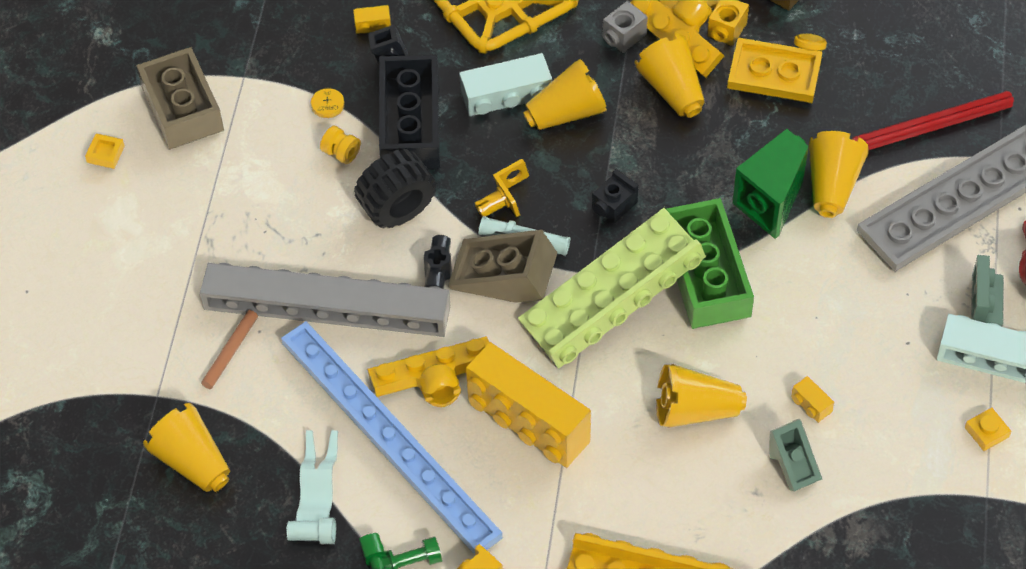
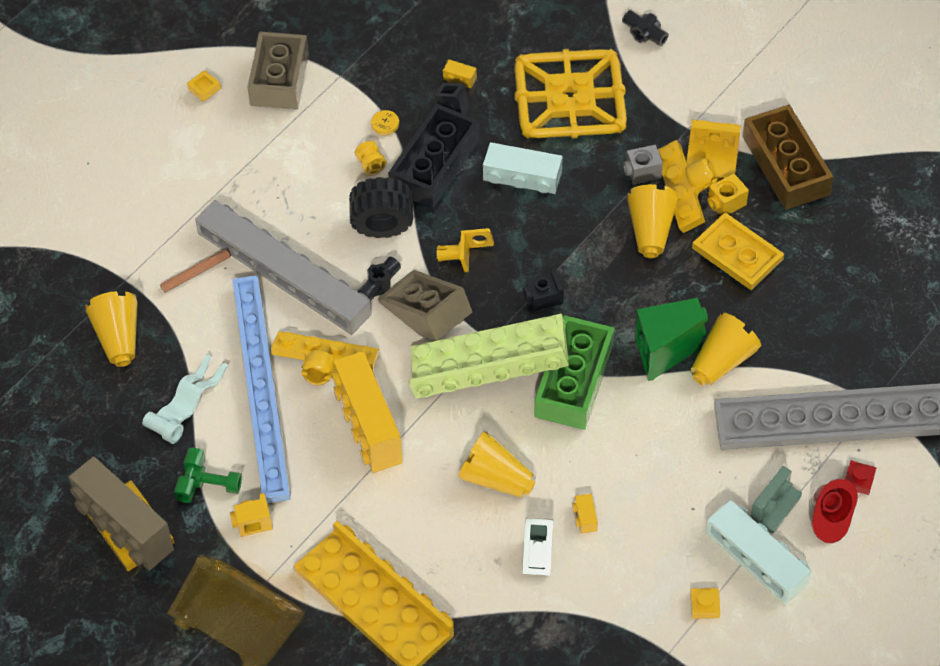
camera: 30 degrees right, 0 degrees up
(495, 227) = (438, 271): light aqua pin -> none
(566, 99) = (557, 199): yellow cone -> none
(810, 42) = (781, 242): yellow piece -> none
(937, 120) = (837, 349): red axle -> none

